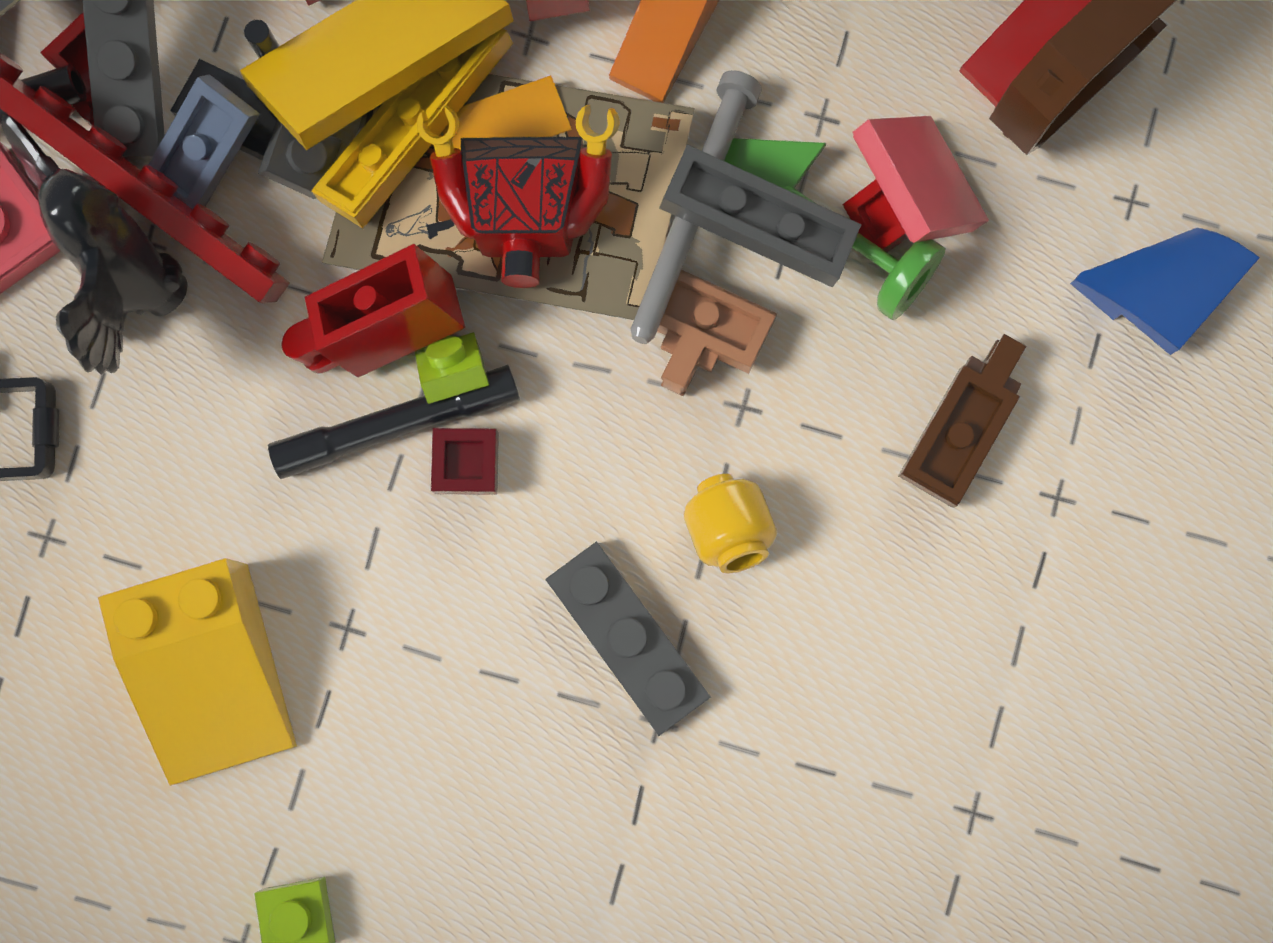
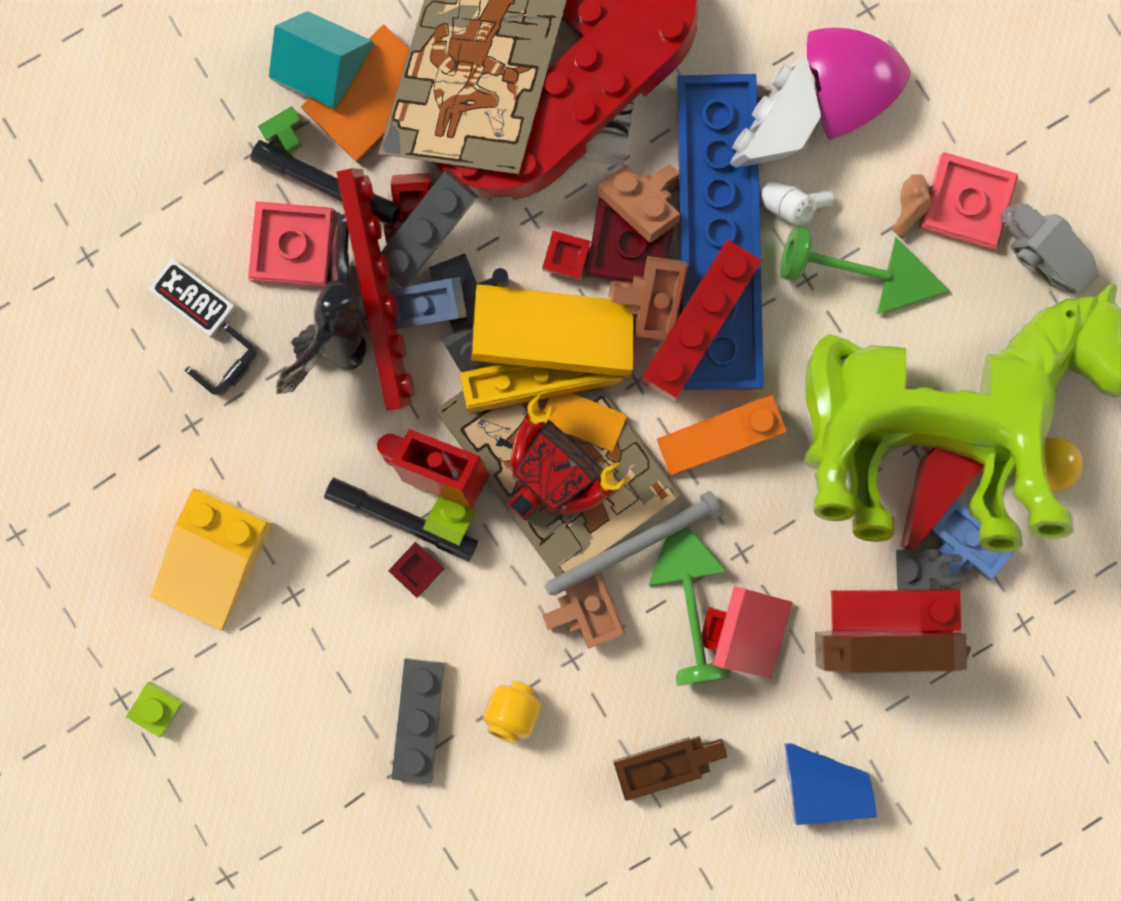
camera: 40 degrees right, 5 degrees up
(760, 216) = (656, 583): dark grey plate -> none

